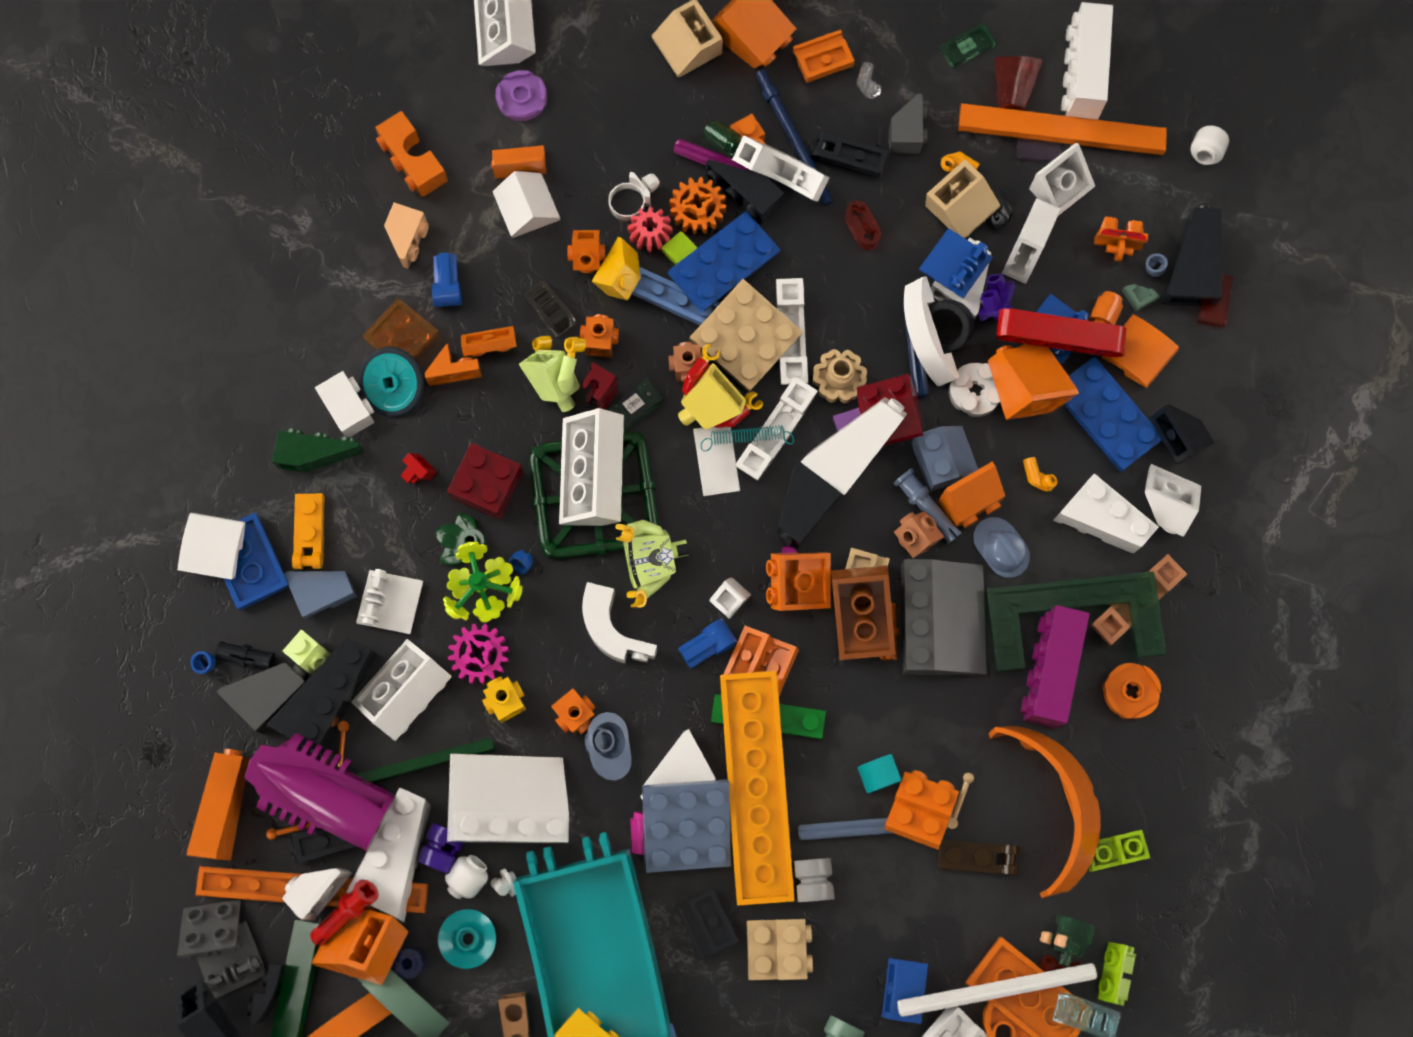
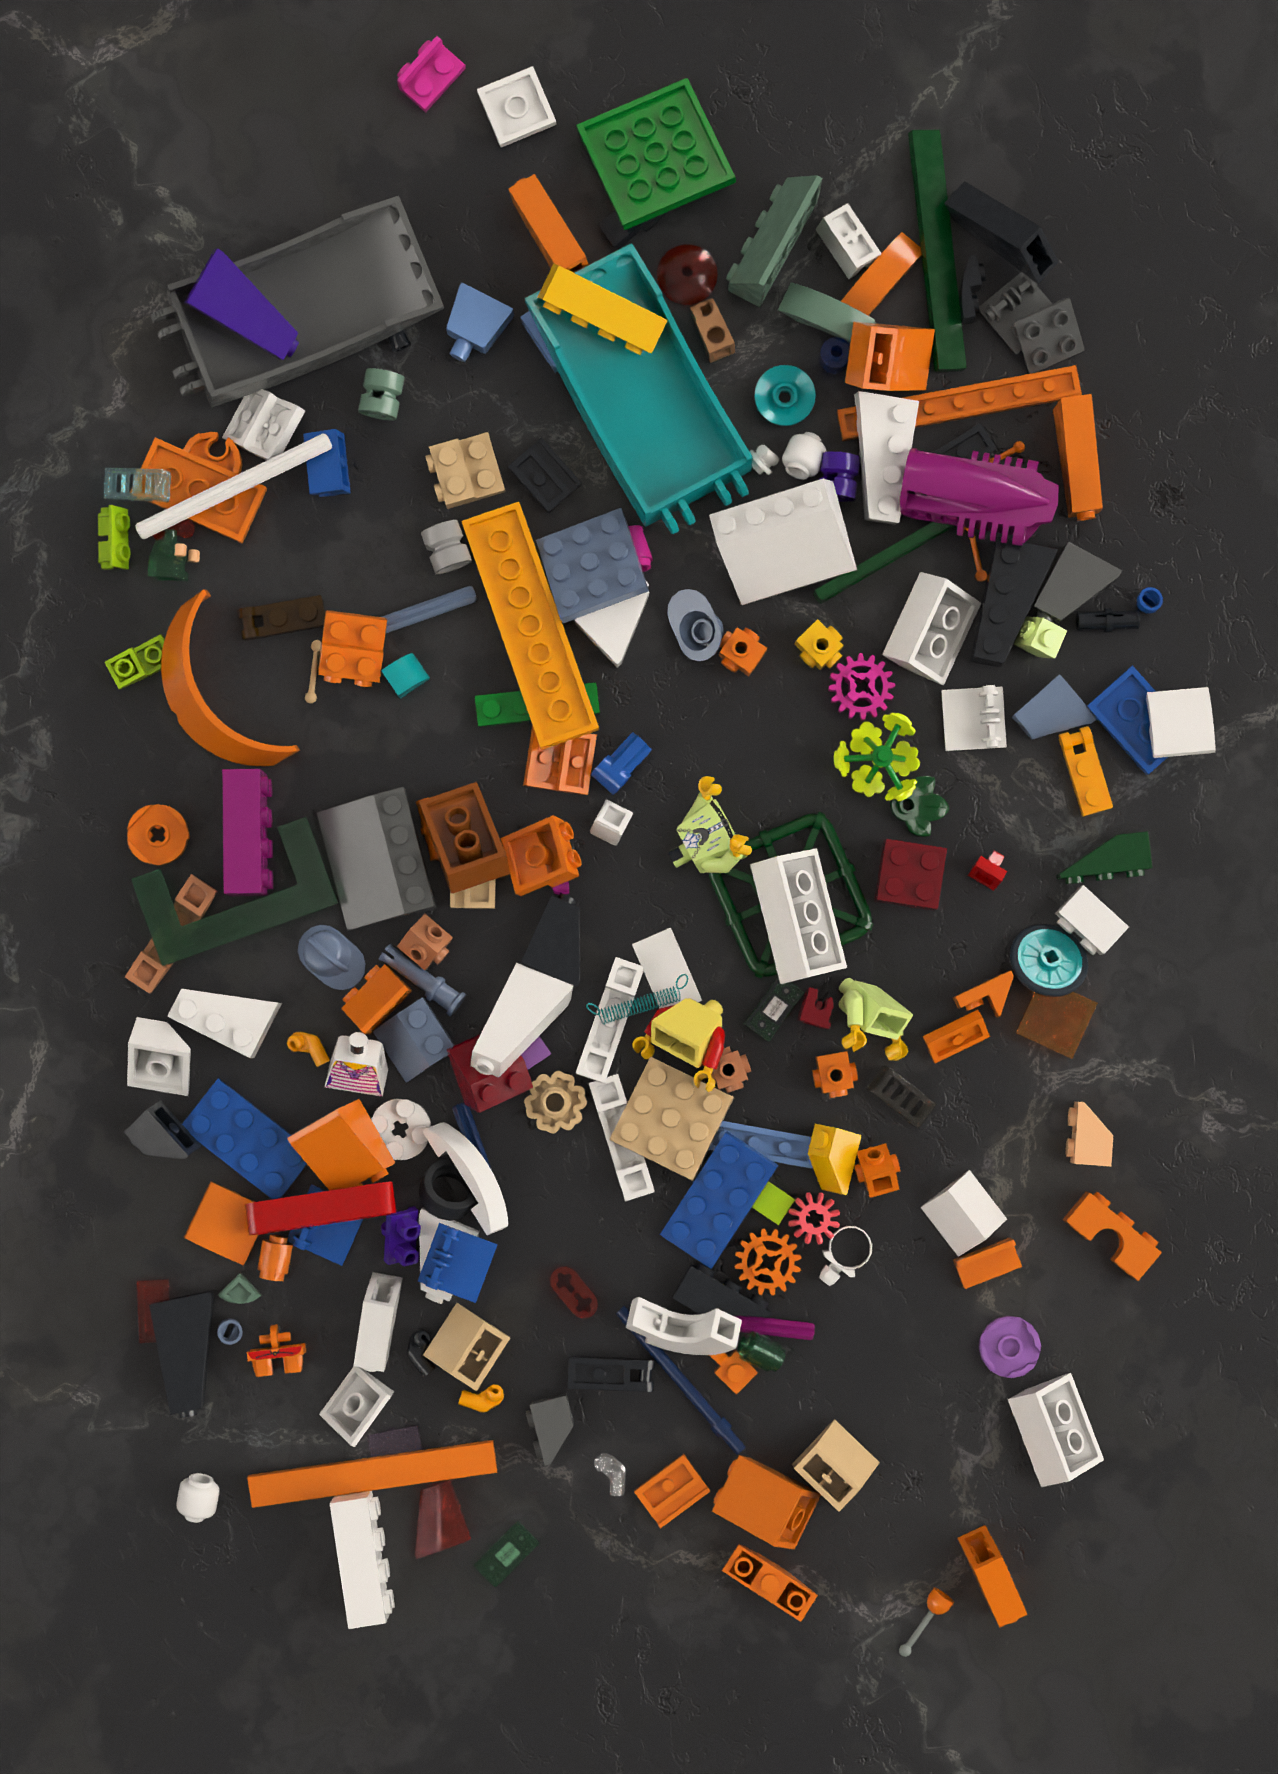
camera: 165 degrees right, 10 degrees up
(313, 891) = (955, 397): white slope -> none
(350, 906) = (909, 387): red pin -> none
(446, 289) = (1022, 1086): blue piece -> none
(521, 561) = (846, 798): blue hinge -> none
(596, 614) = (737, 745): white arch -> none
(1001, 444) = (358, 1065): none -> white torso

